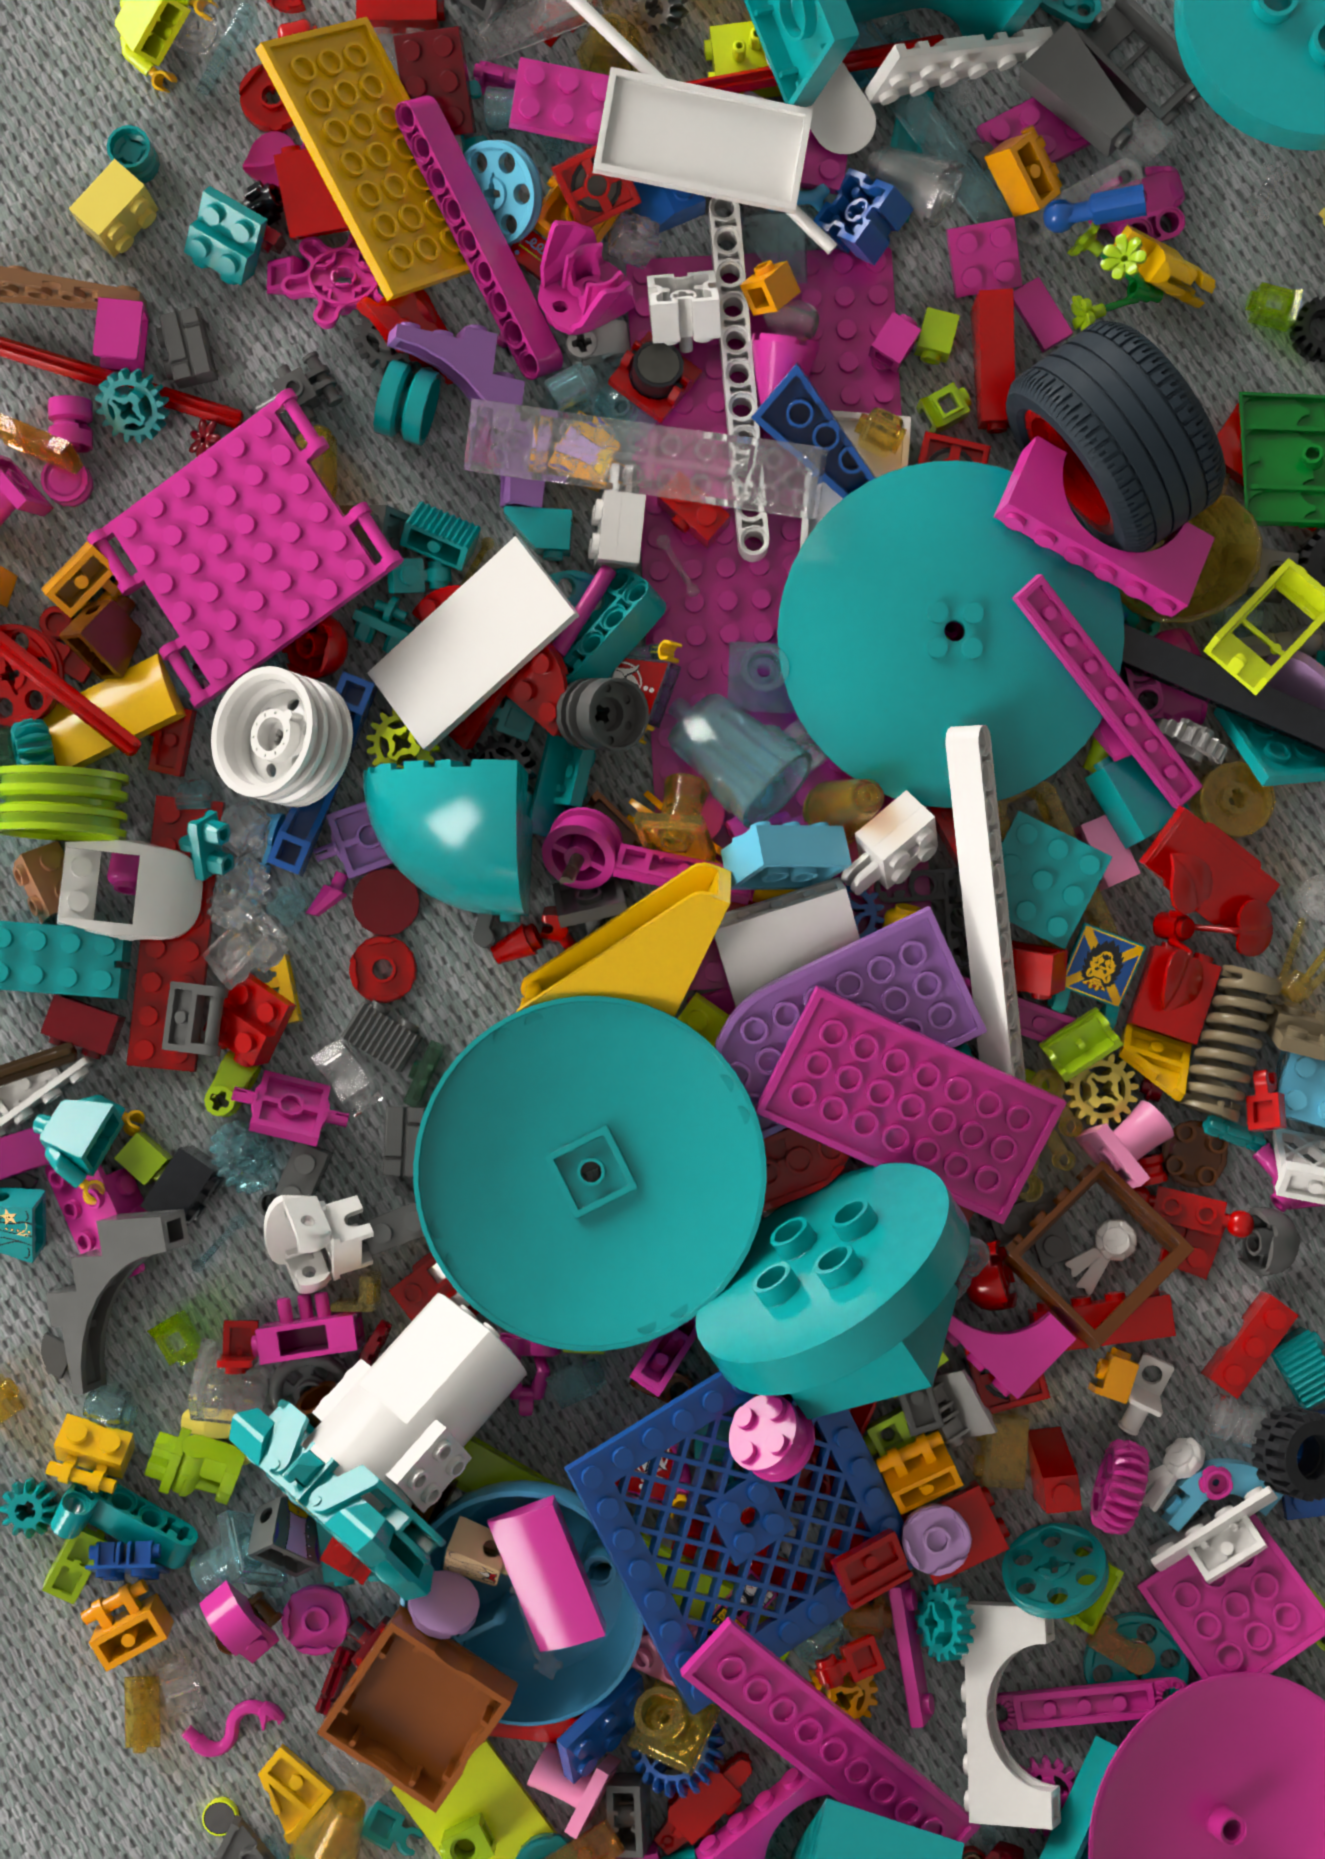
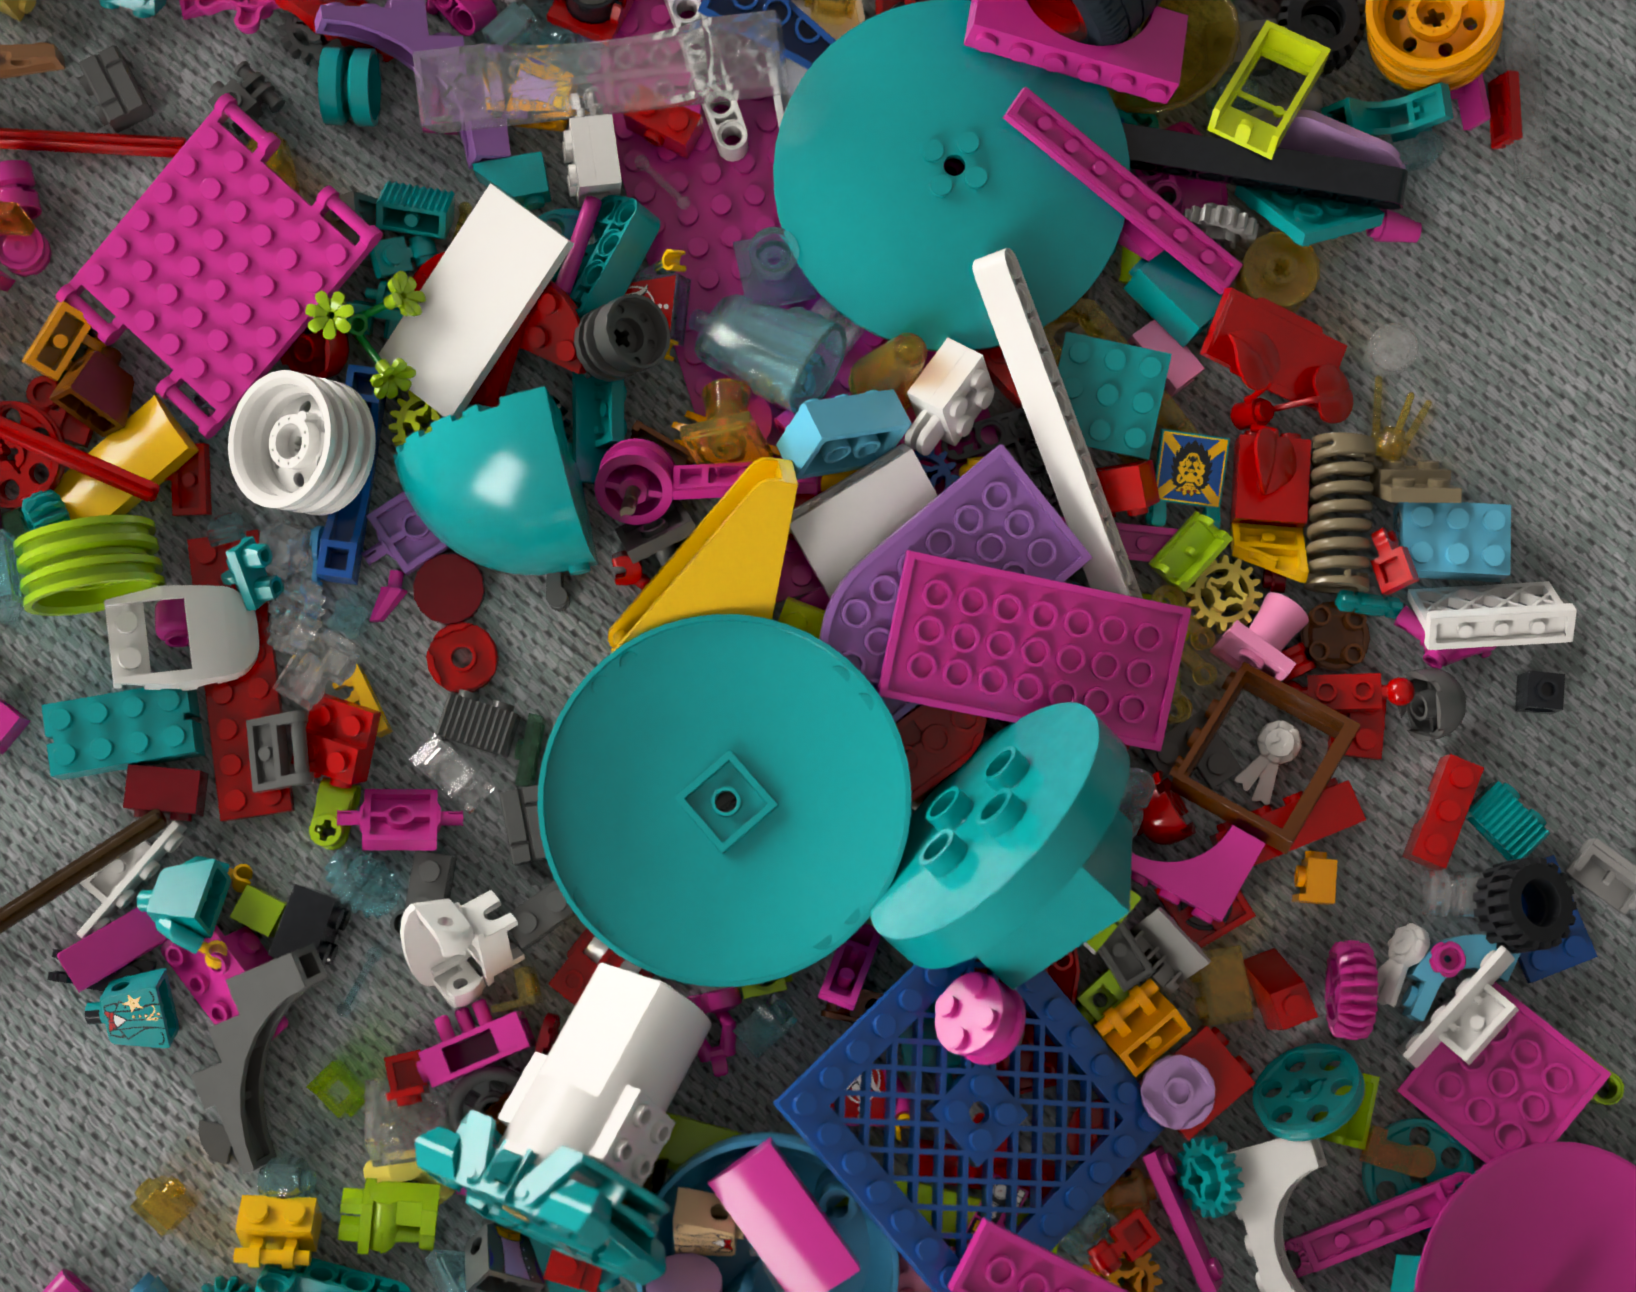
camera: 15 degrees left, 5 degrees down
(41, 876) = (87, 651): nougat bracket -> none
(118, 403) = (58, 162): teal gear -> none
(121, 334) = (45, 91): dark pink piece -> none
(203, 437) = (152, 170): dark red plant -> none
(343, 630) = (333, 316): none -> lime plant
(513, 721) = (534, 373): teal plate -> none
(518, 944) = (594, 597): red cone -> none
(871, 1568) = (1119, 1137): red plate -> none
(1145, 1395) = (1351, 892): white bracket -> none

